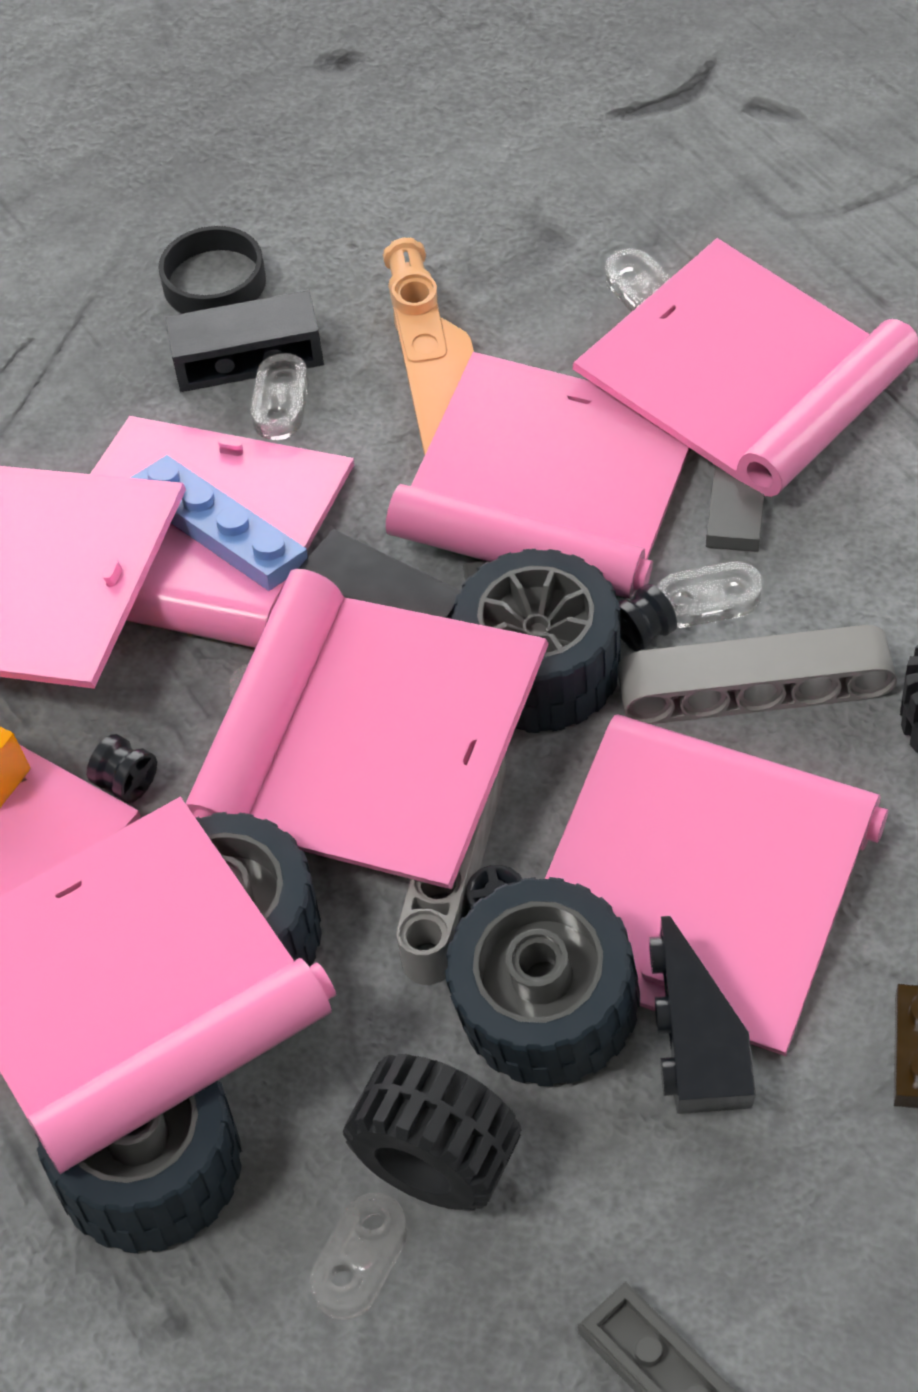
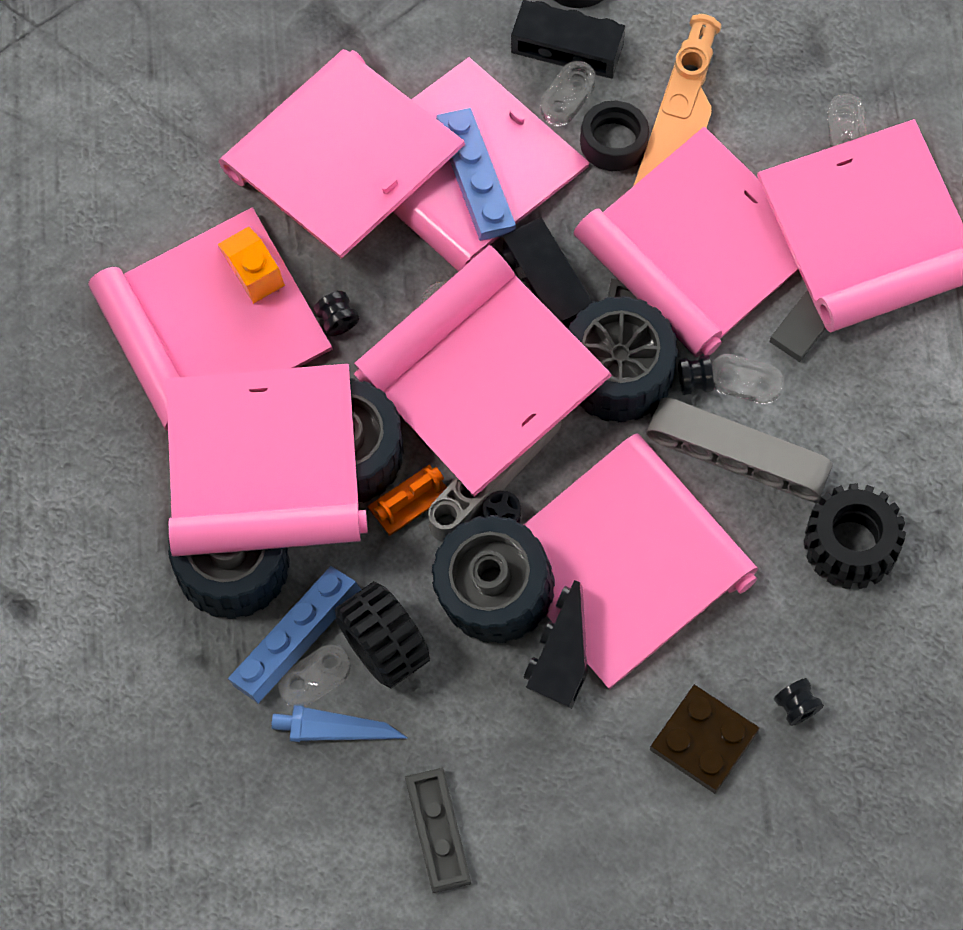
camera: 25 degrees right, 15 degrees up
(295, 1214) = (293, 635): none -> medium blue plate
(361, 944) = (408, 499): none -> orange hinge
(368, 437) = (610, 113): none -> black tyre
(407, 1321) = (317, 725): none -> medium blue bar

